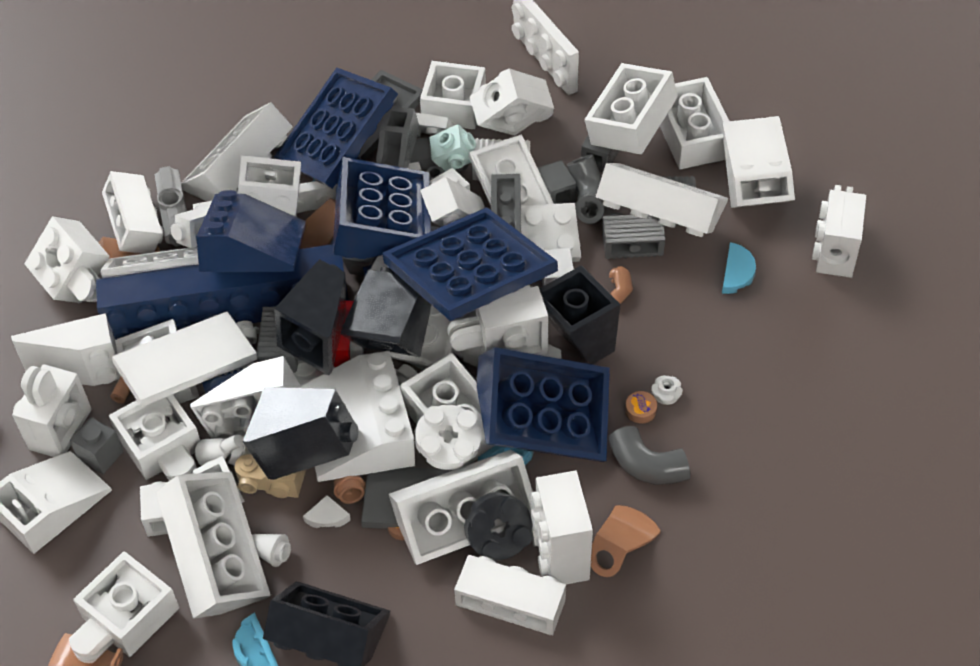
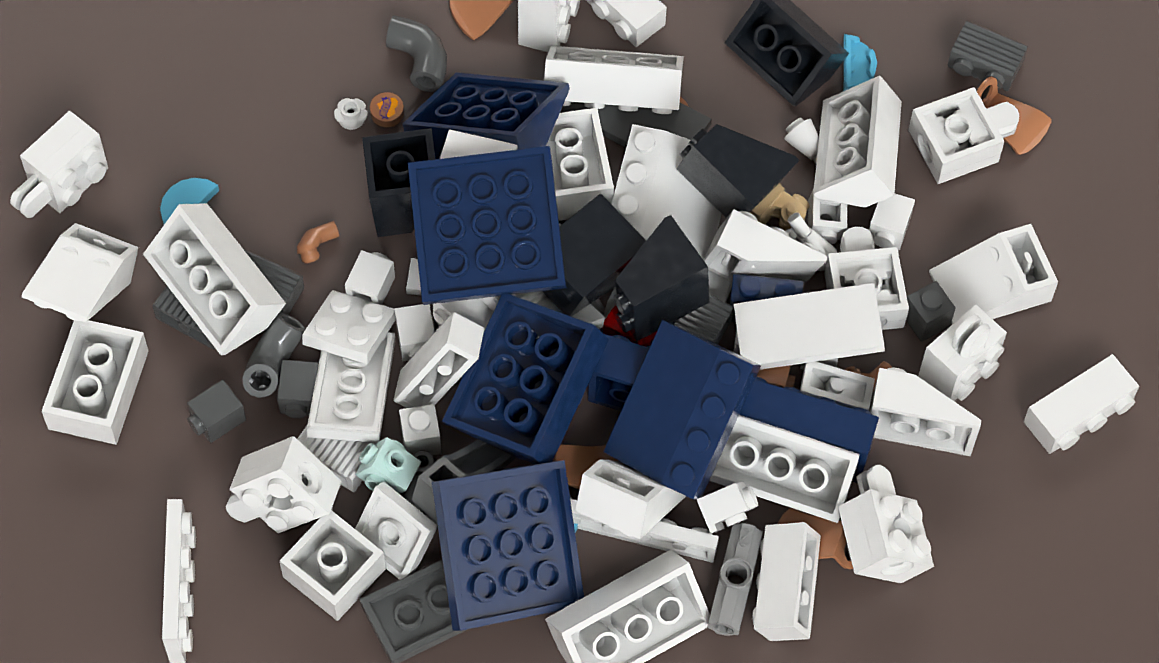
camera: 155 degrees left, 10 degrees up
(448, 418) = (598, 102): white plate -> none
(481, 520) = (595, 43): black plate -> none
(507, 198) = (386, 343): dark grey plate -> none
(631, 108) = (168, 385): white brick -> none

